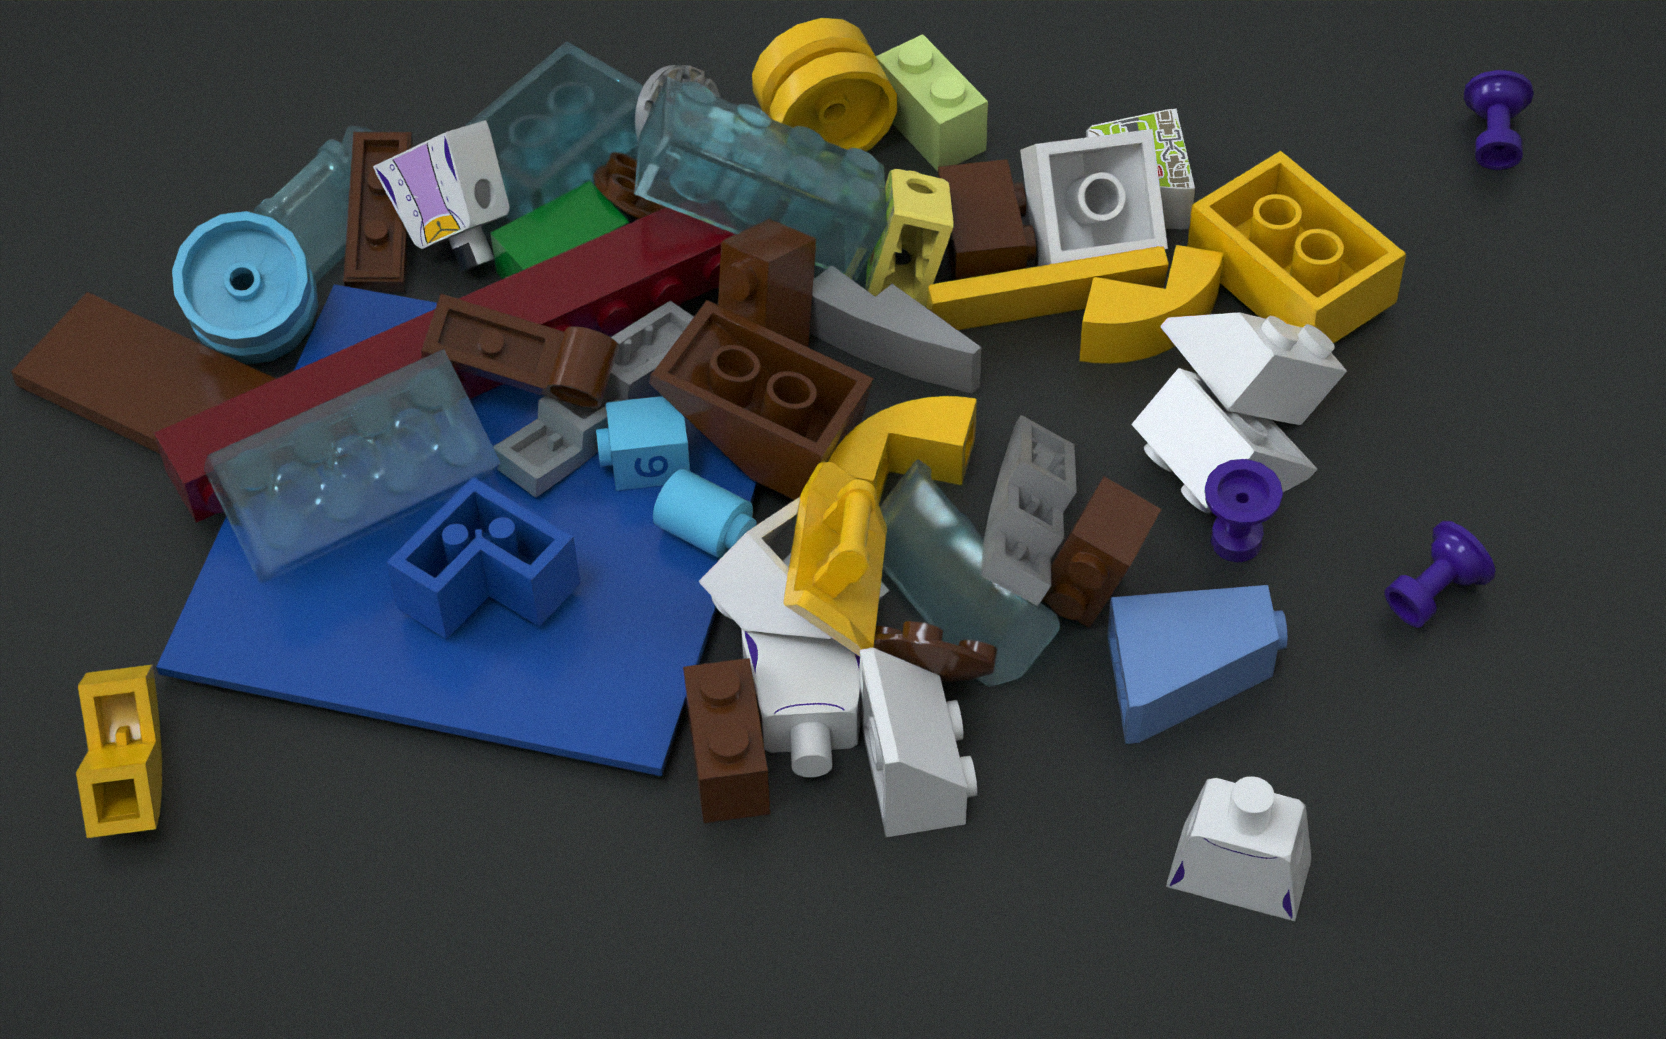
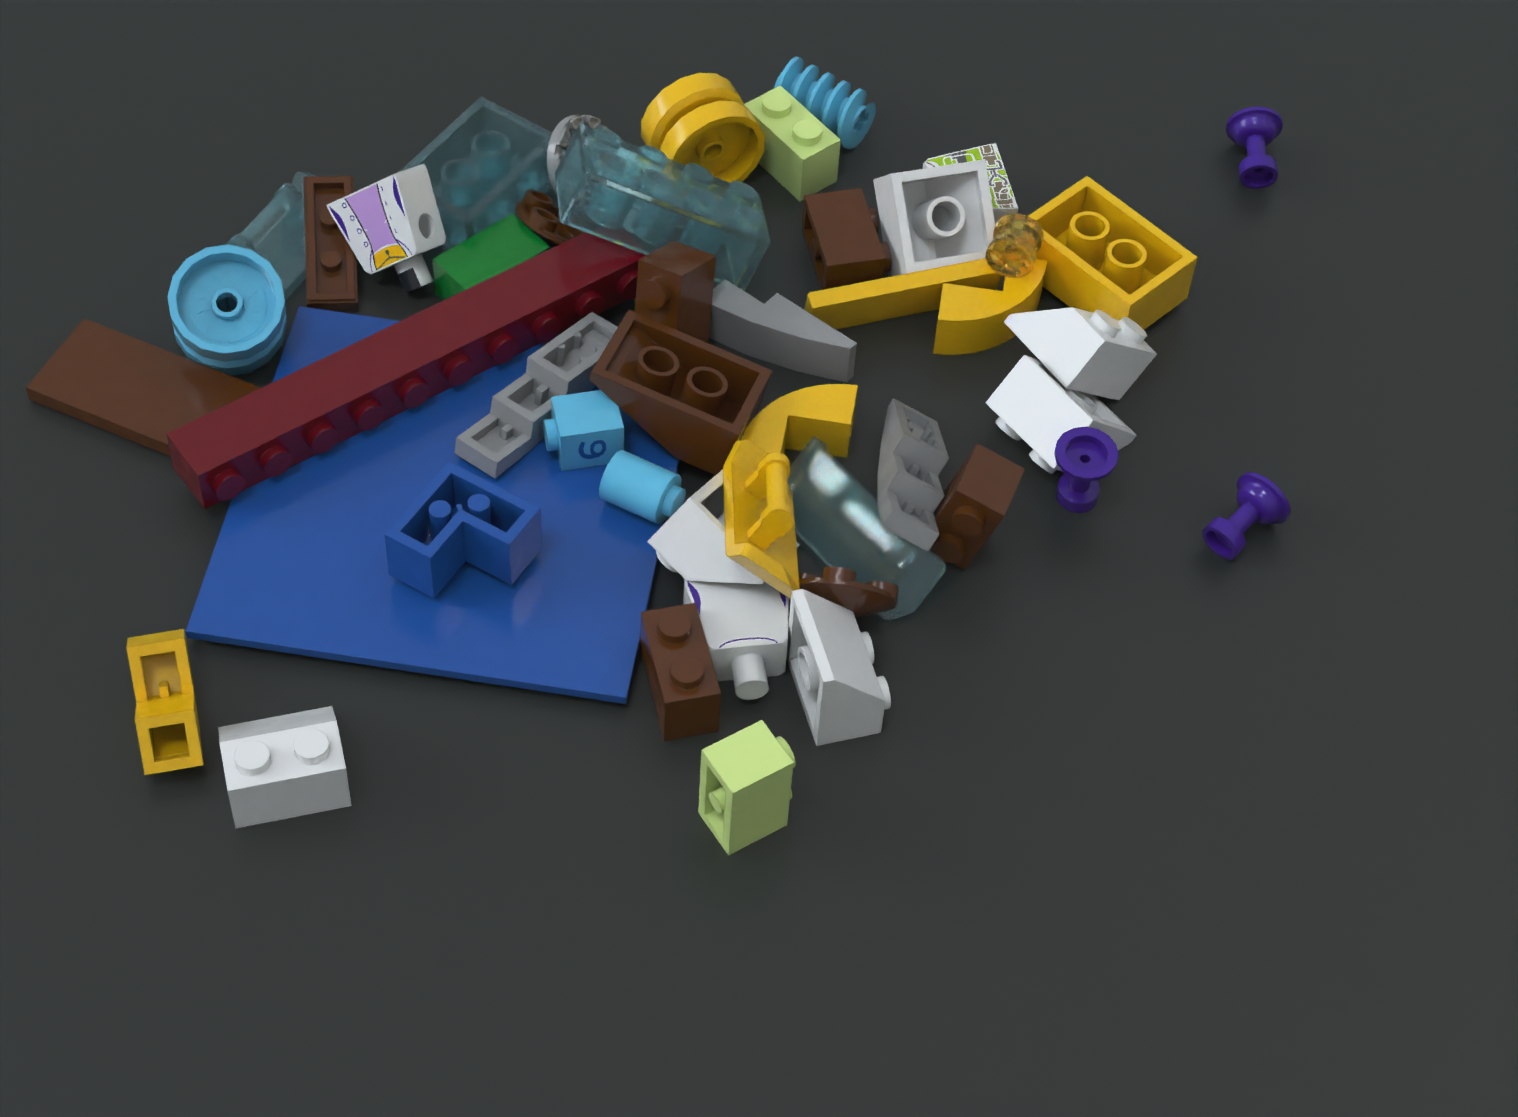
camera: 10 degrees left, 0 degrees up
(248, 835) = (284, 767): none -> white slope
(350, 465) = (340, 456): clear light blue brick -> none
(521, 353) = (476, 357): reddish brown plate -> none
(787, 885) = (746, 786): none -> yellowish green brick
(921, 224) = (795, 246): light yellow torso -> none
(982, 57) = (832, 106): none -> medium azure piece
(1182, 234) = (1014, 245): none -> clear yellow wheel
(1189, 652) = (1049, 585): medium blue slope -> none
(1244, 847) = (1112, 739): white torso -> none

